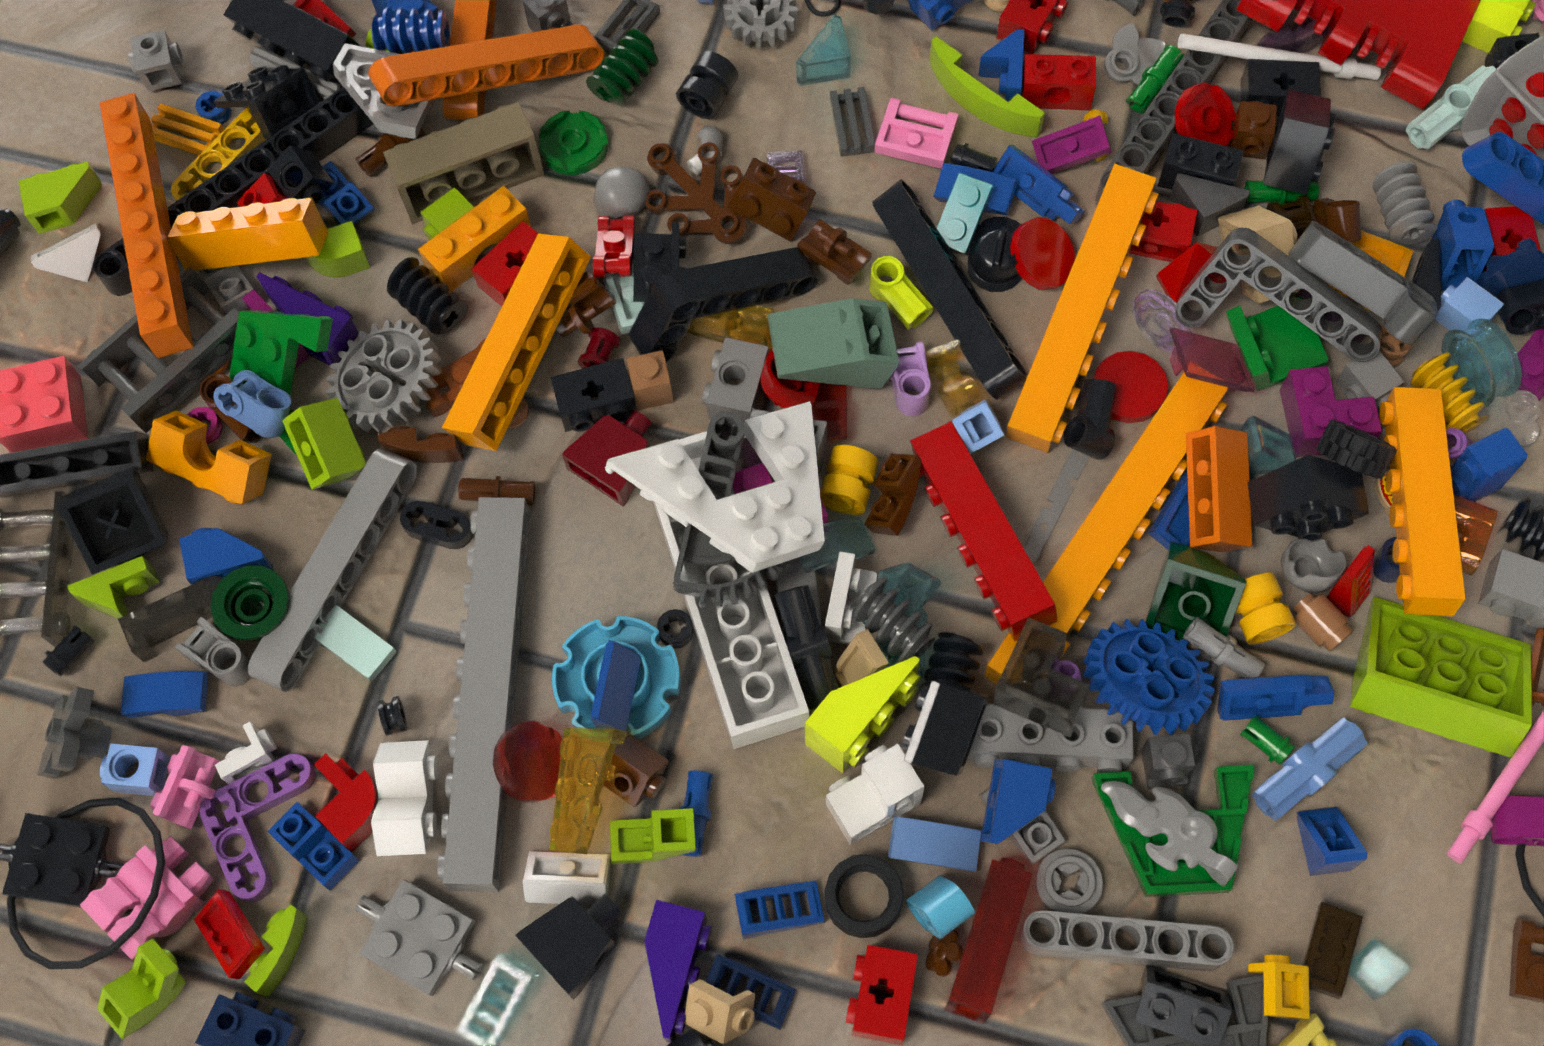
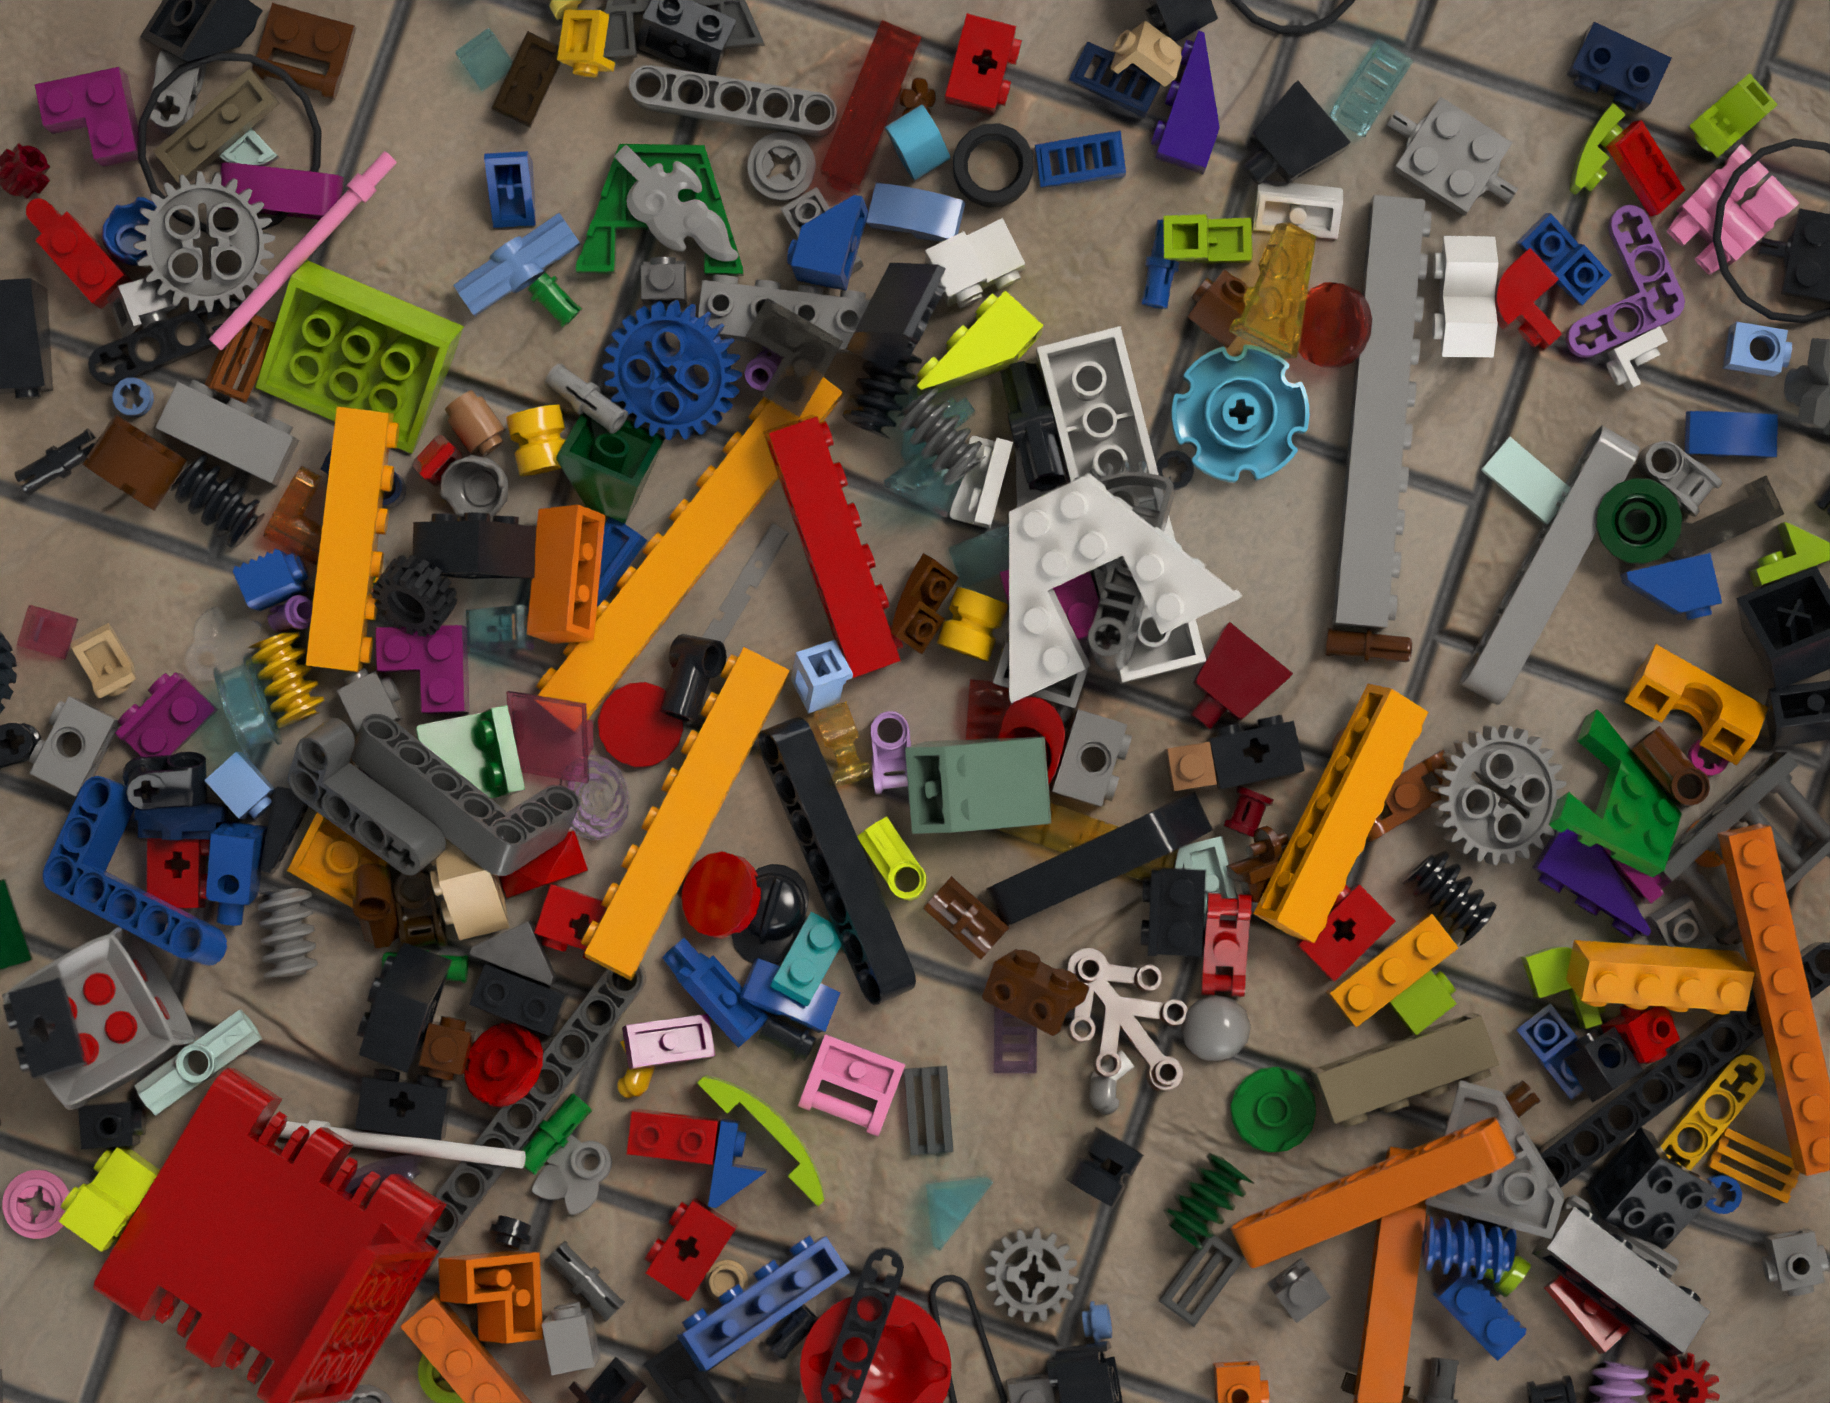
camera: 175 degrees left, 20 degrees up
(186, 787) = (1698, 324): bright pink hips -> none
(257, 403) = (1645, 759): medium blue piece -> none
(324, 443) = (1562, 706): lime brick -> none
(392, 715) = (1482, 390): black bush -> none
(409, 444) = (1466, 706): reddish brown slope -> none
(433, 532) = (1433, 622): black beam -> none
(615, 687) = (1239, 388): blue slope -> none
(859, 659) = (979, 399): tan tile -> none
(1272, 696) = (540, 344): blue hinge -> none

